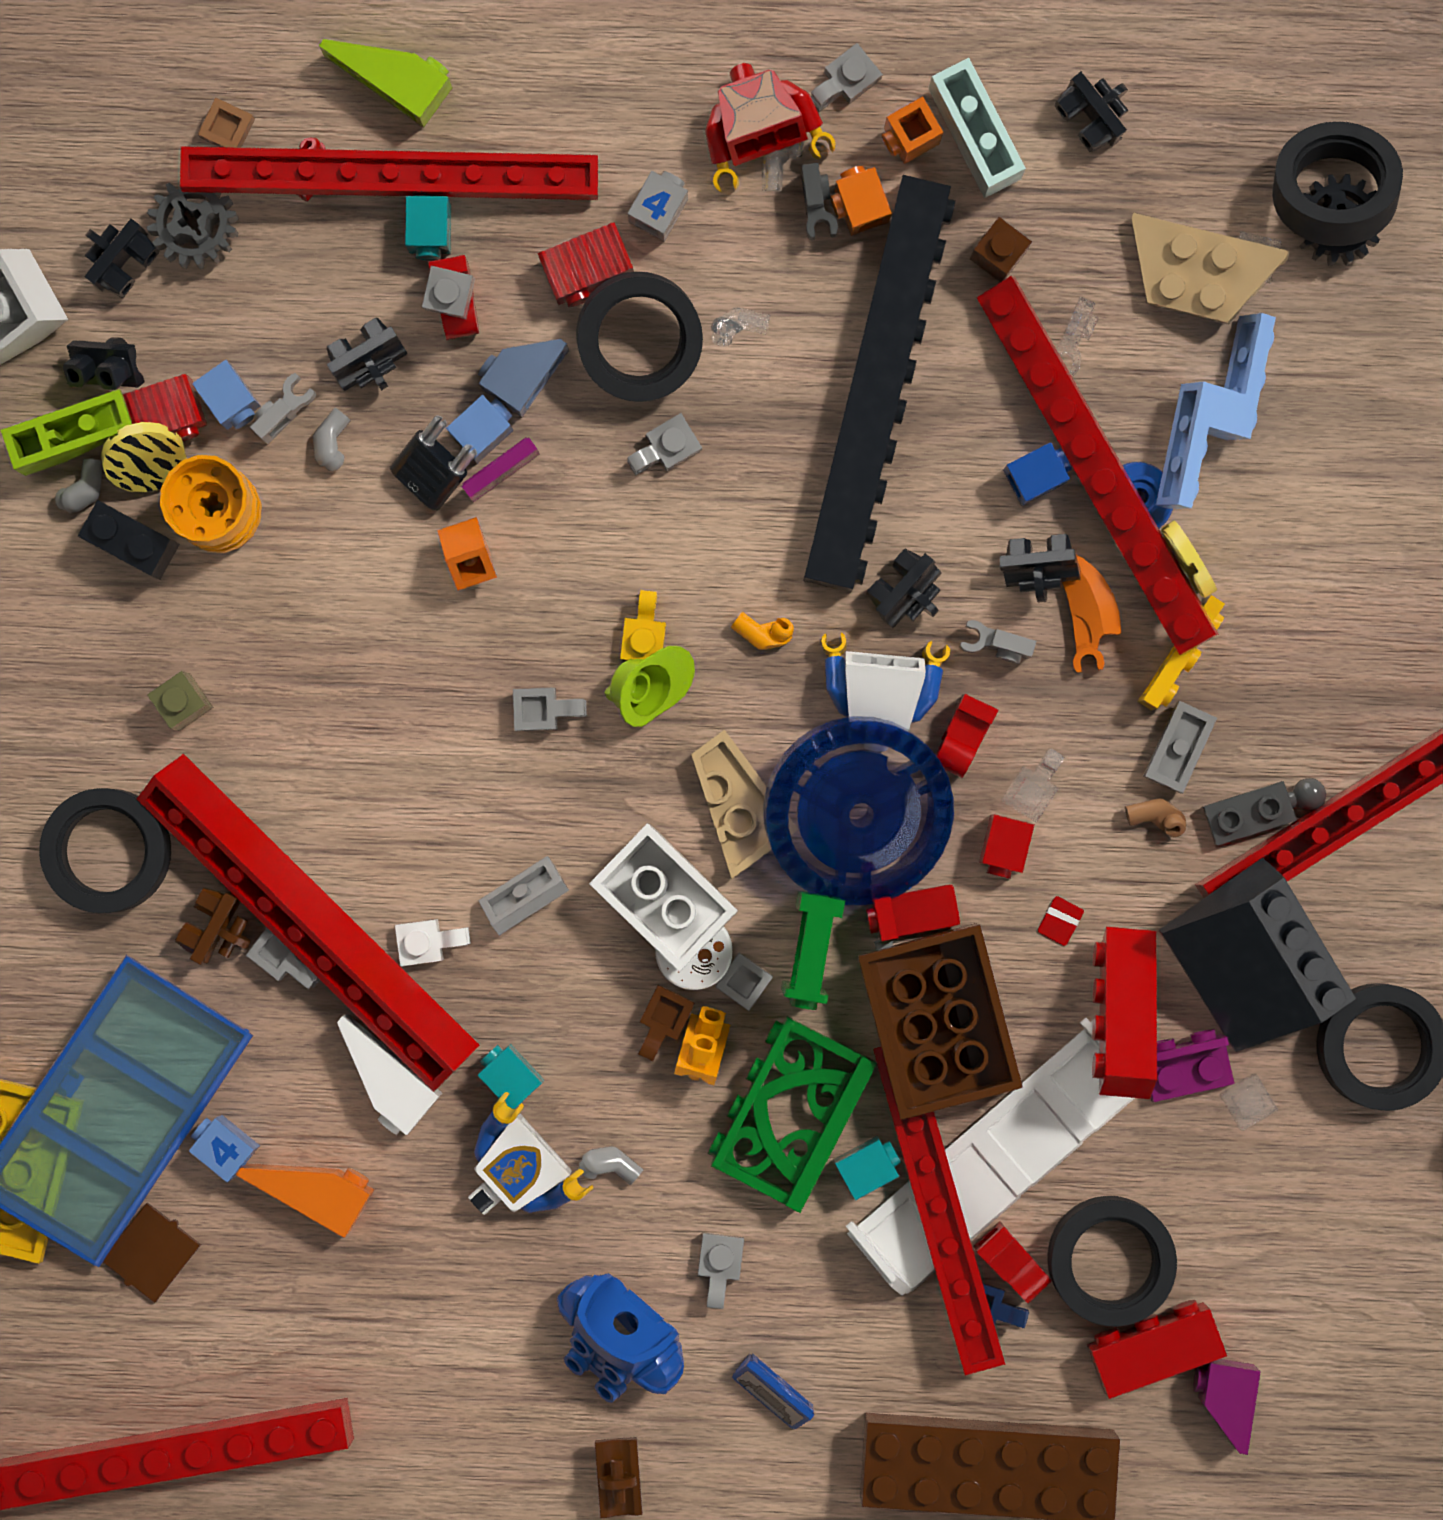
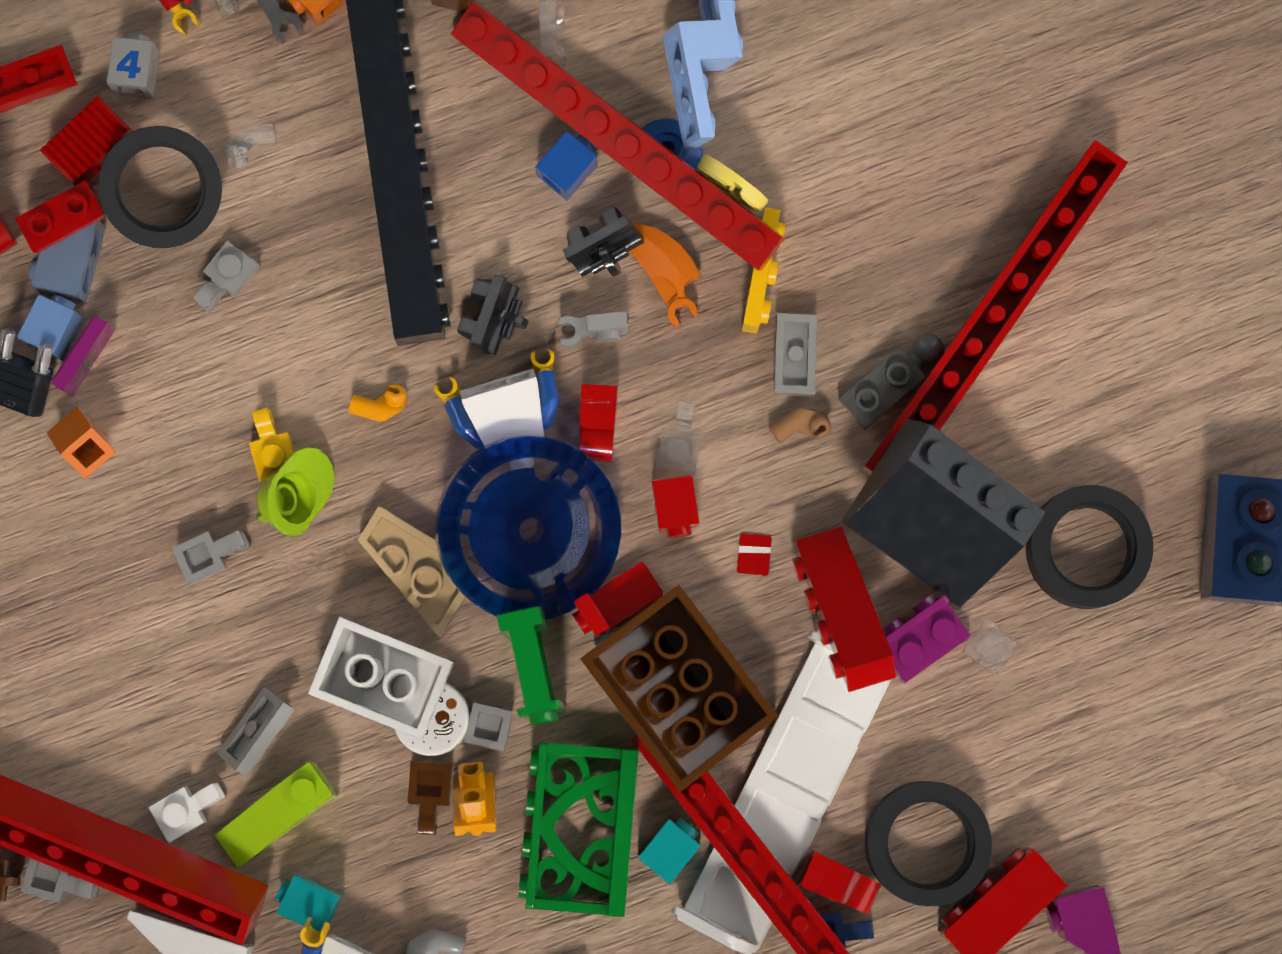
camera: 25 degrees left, 5 degrees down
(511, 981) = (276, 813): none -> lime slope
(533, 328) = (60, 216): none -> red bracket

